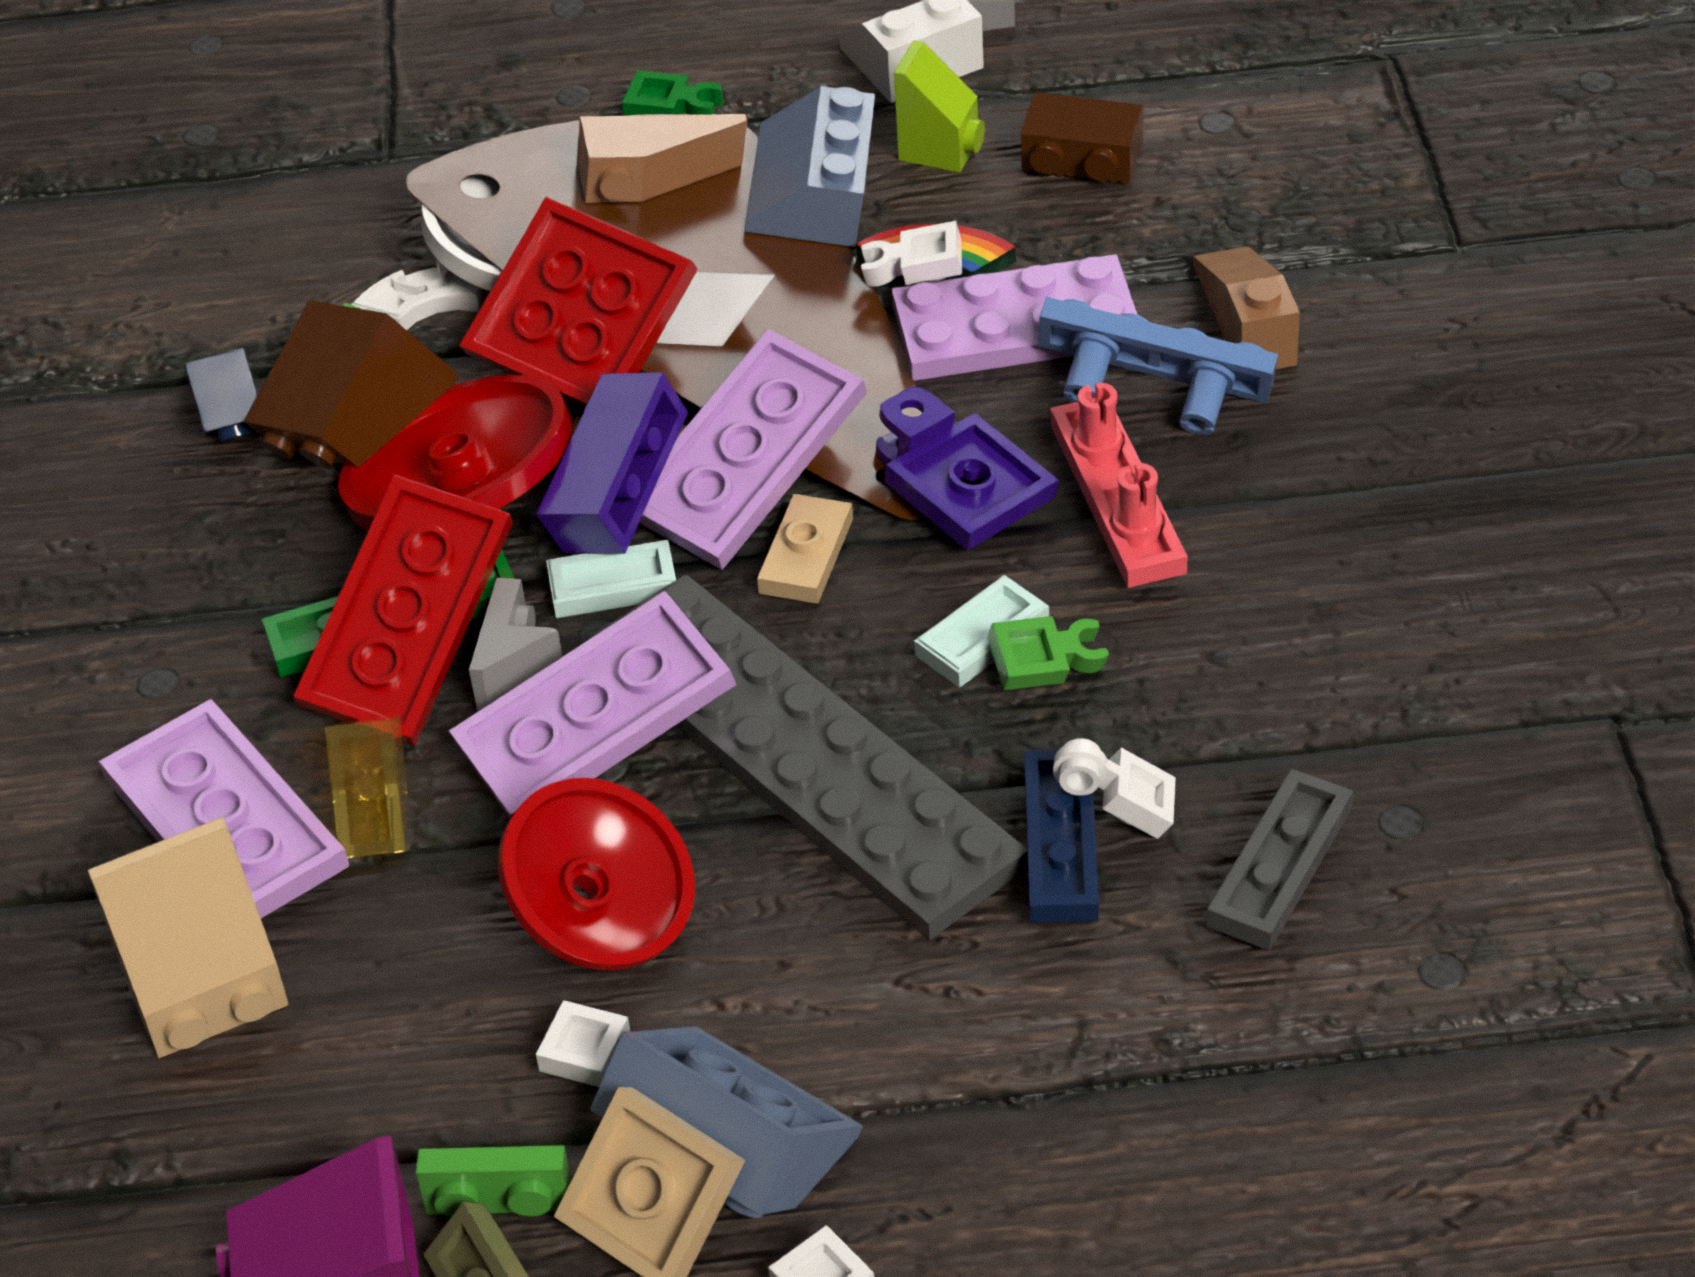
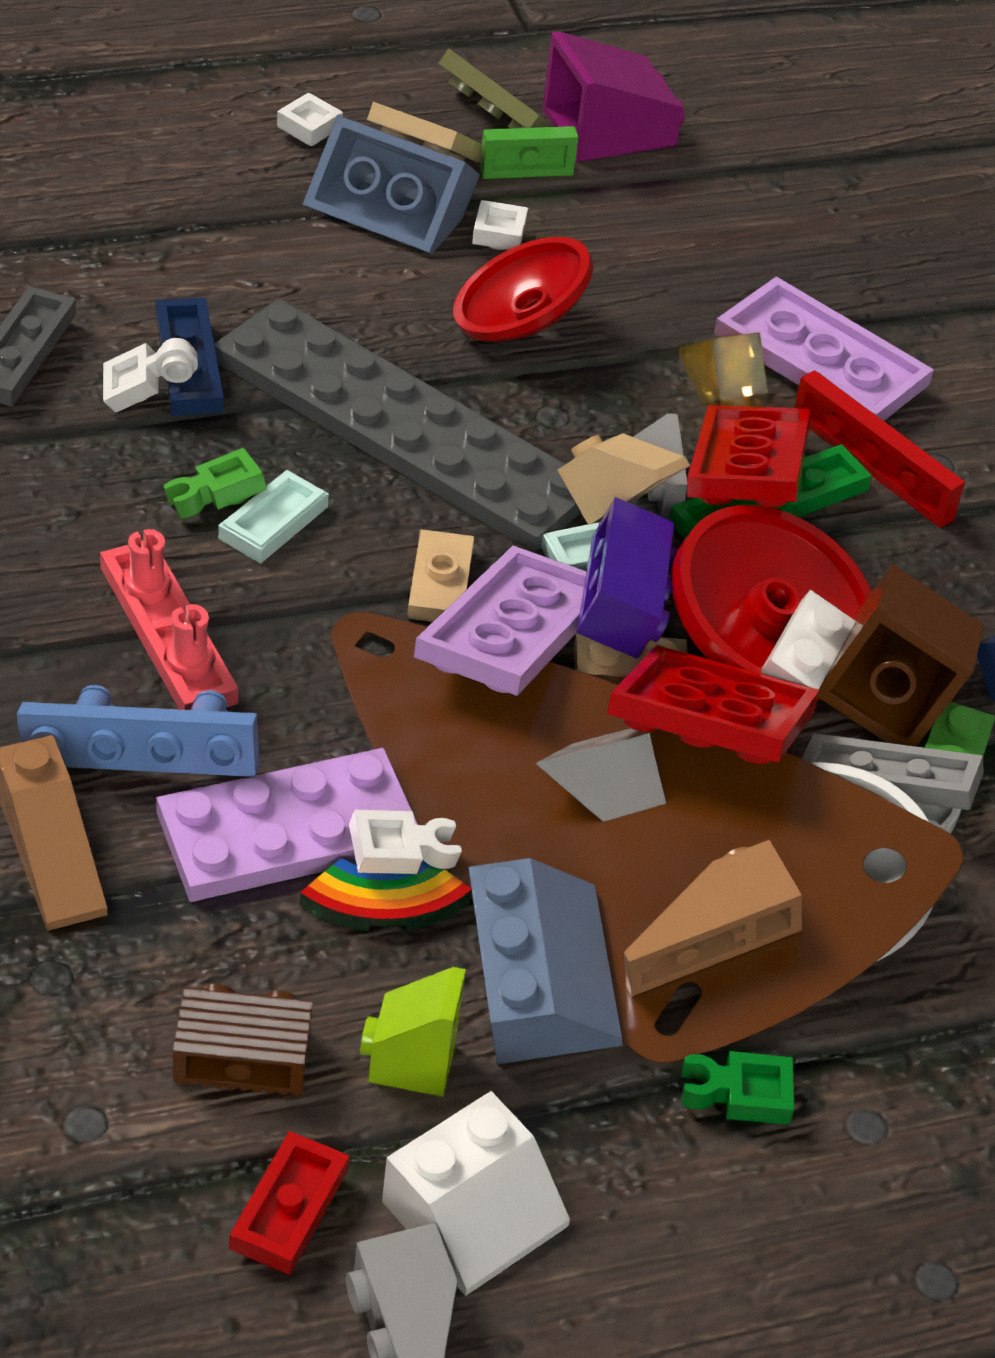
camera: 160 degrees right, 0 degrees up
(189, 937) = (784, 222): tan slope -> none
(263, 715) = (881, 449): none -> red plate
(409, 294) = (924, 774): none -> light grey plate
(445, 398) = (809, 642): none -> white plate
(567, 575) = (616, 468): none -> tan slope
(594, 704) = (566, 404): lavender plate -> none
(937, 454) = (336, 639): dark purple plate -> none
(1058, 45) = (289, 1202): none -> red plate

